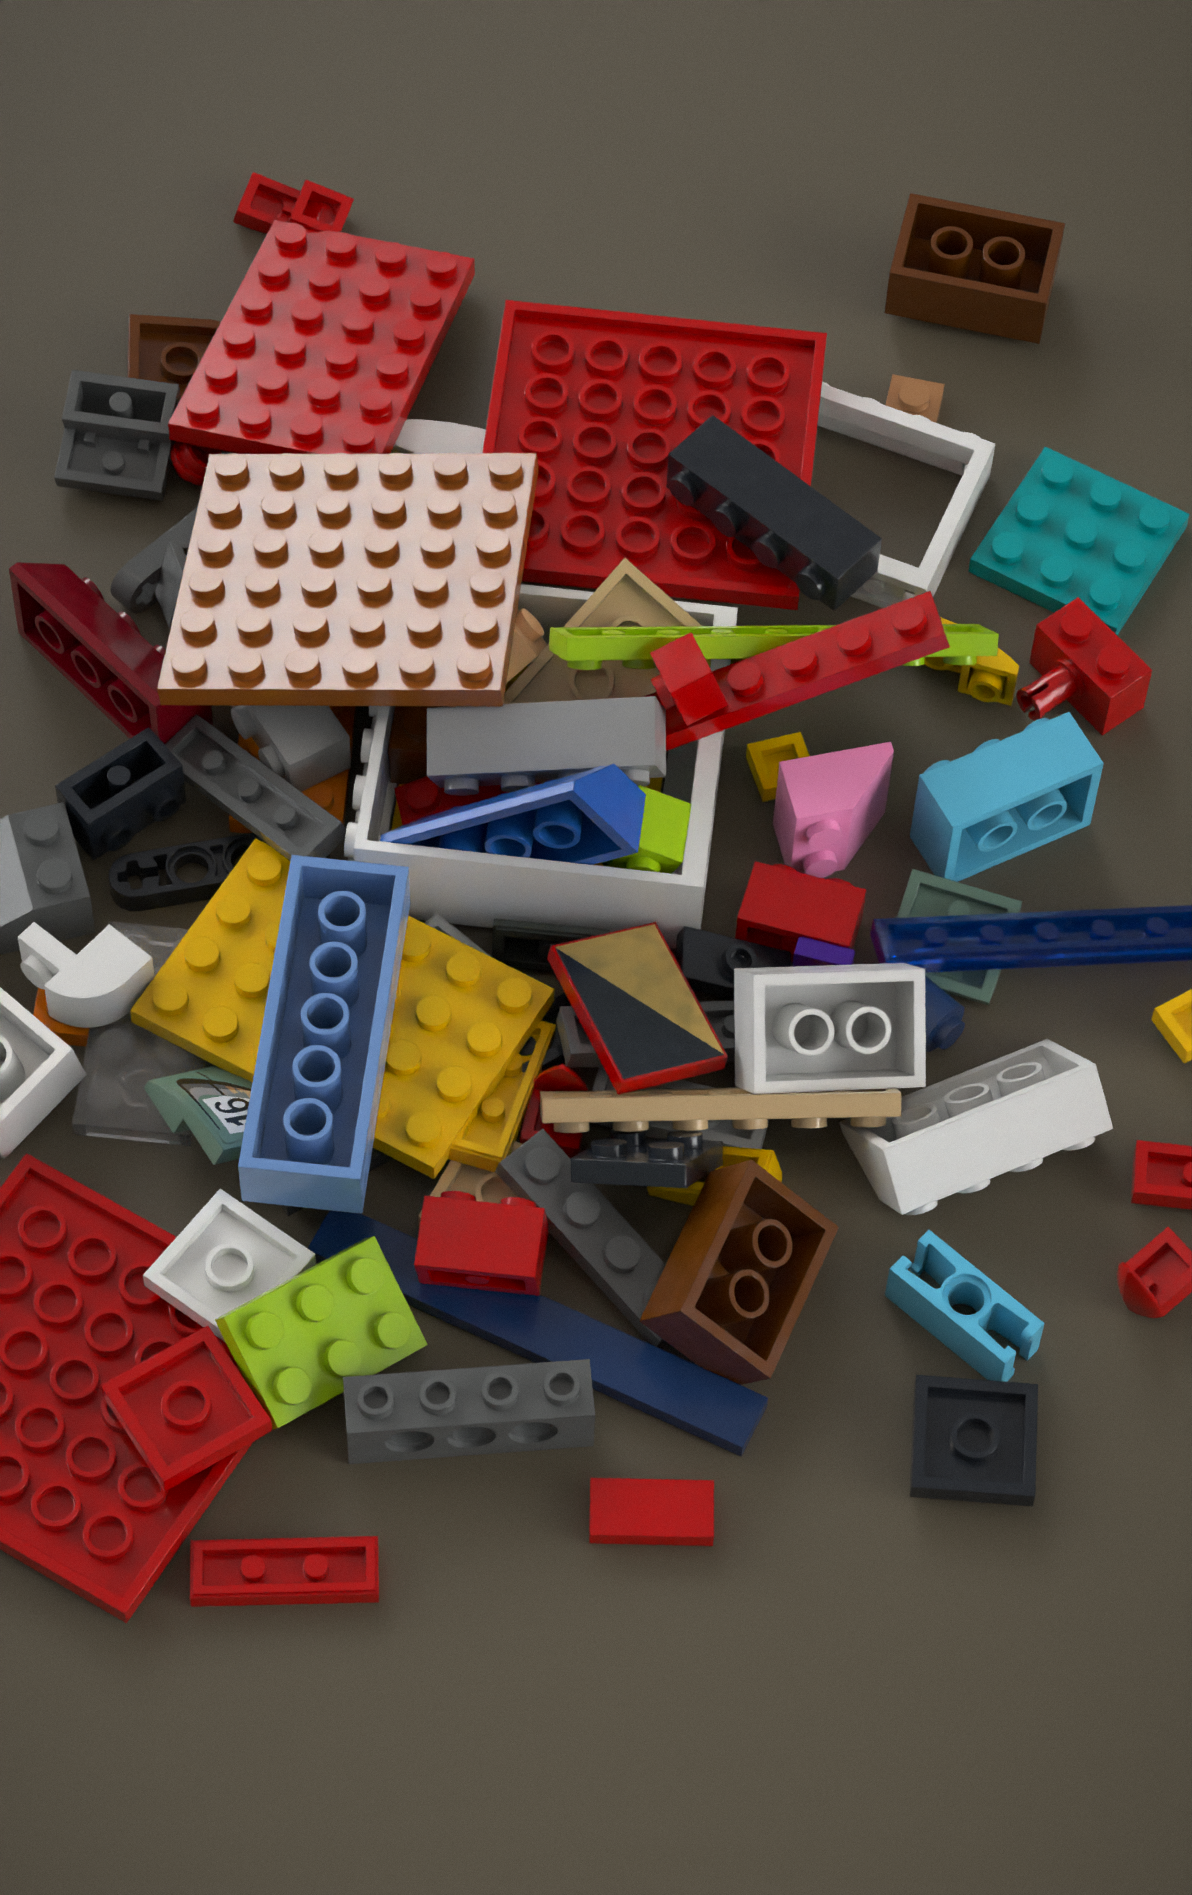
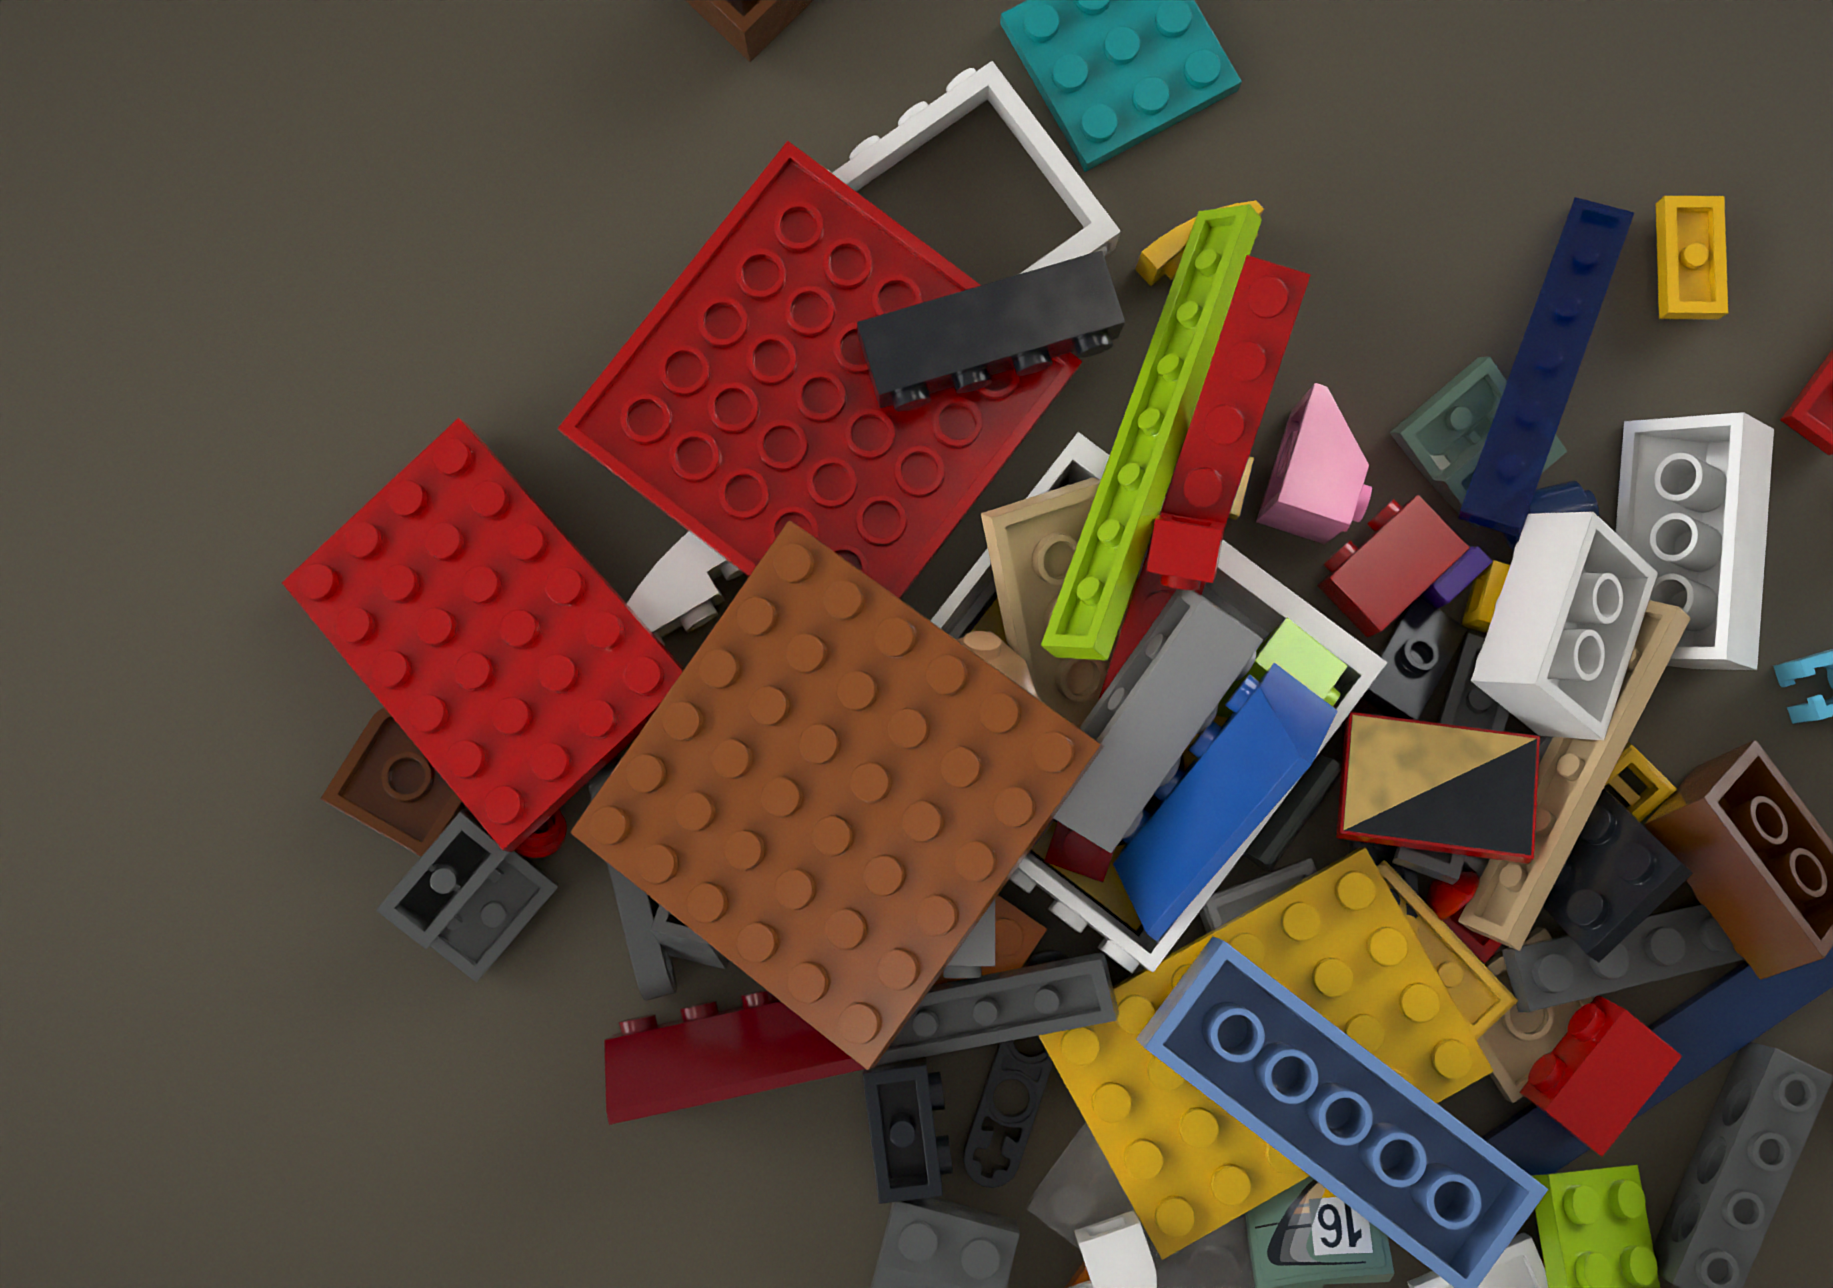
camera: 55 degrees left, 25 degrees up
(312, 207) = (282, 545): red slope -> none
(915, 396) = (873, 102): medium nougat plate -> none
(1005, 798) = (1394, 304): medium azure brick -> none
(1085, 666) = (1279, 138): red brick -> none

